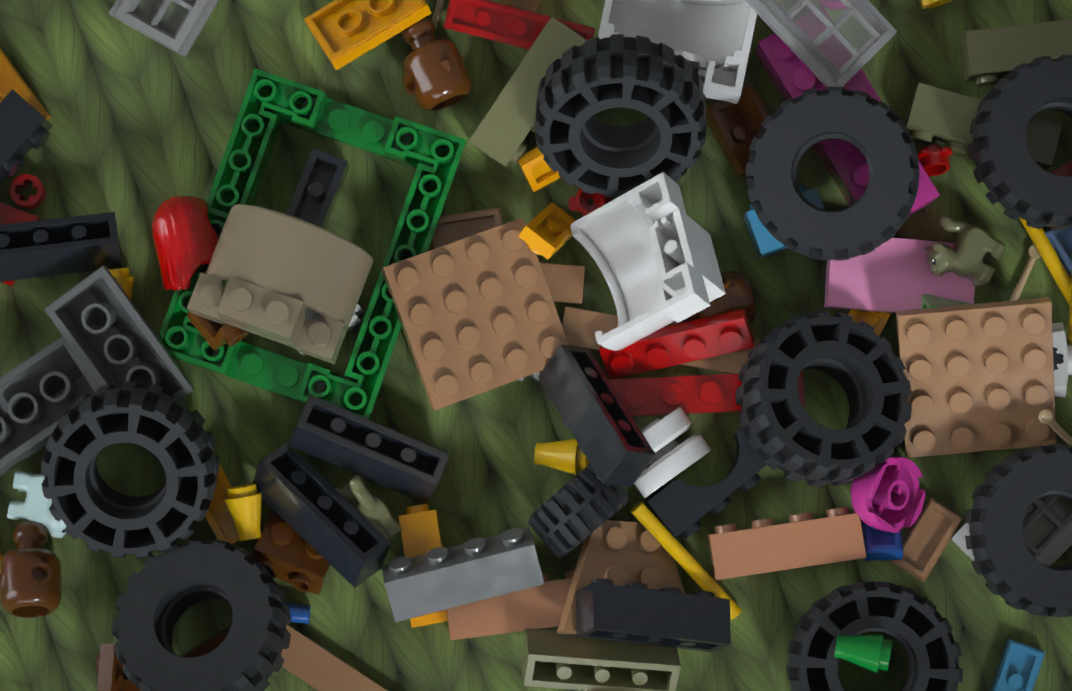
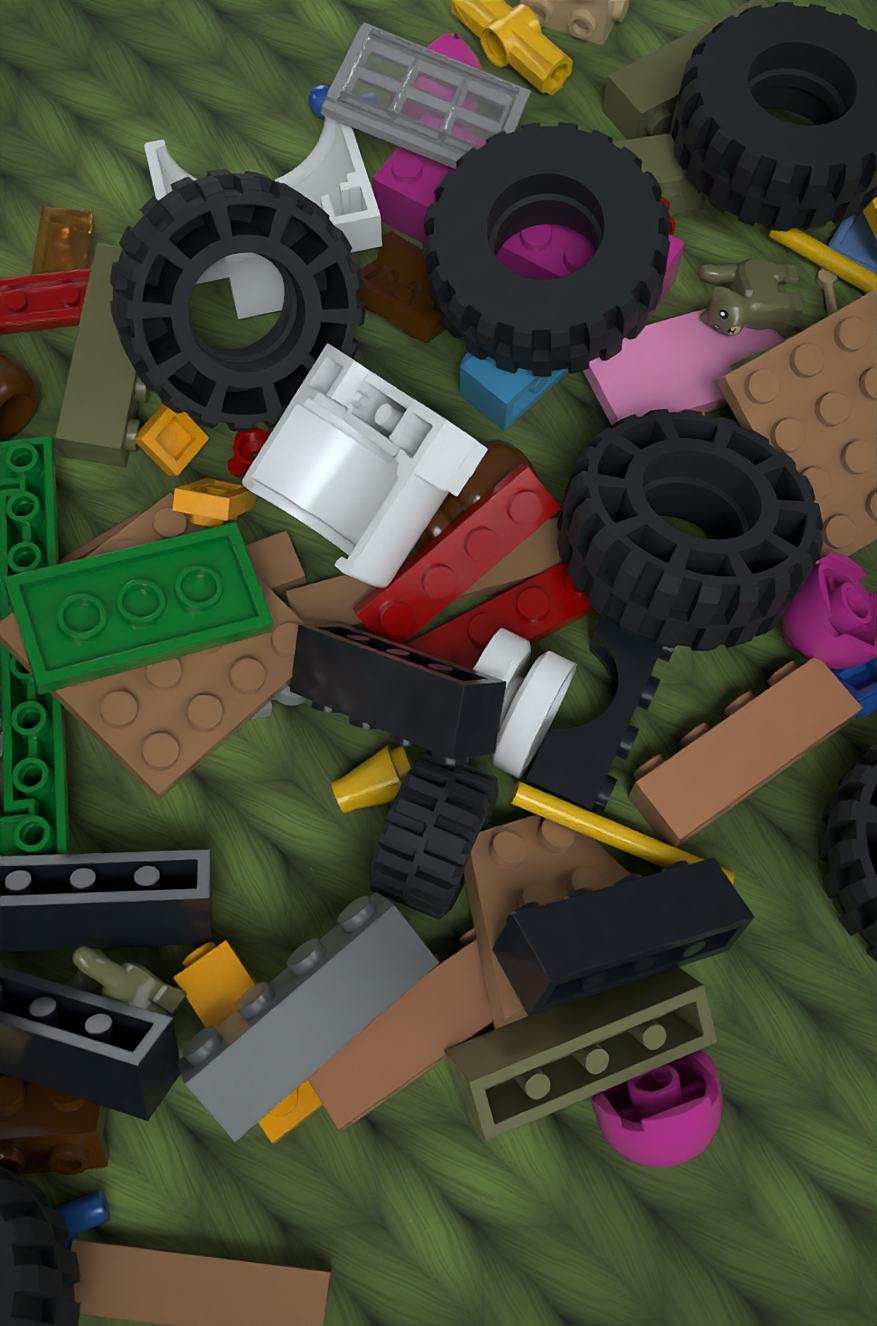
camera: 30 degrees left, 15 degrees down
(472, 295) = (137, 607): none -> green plate

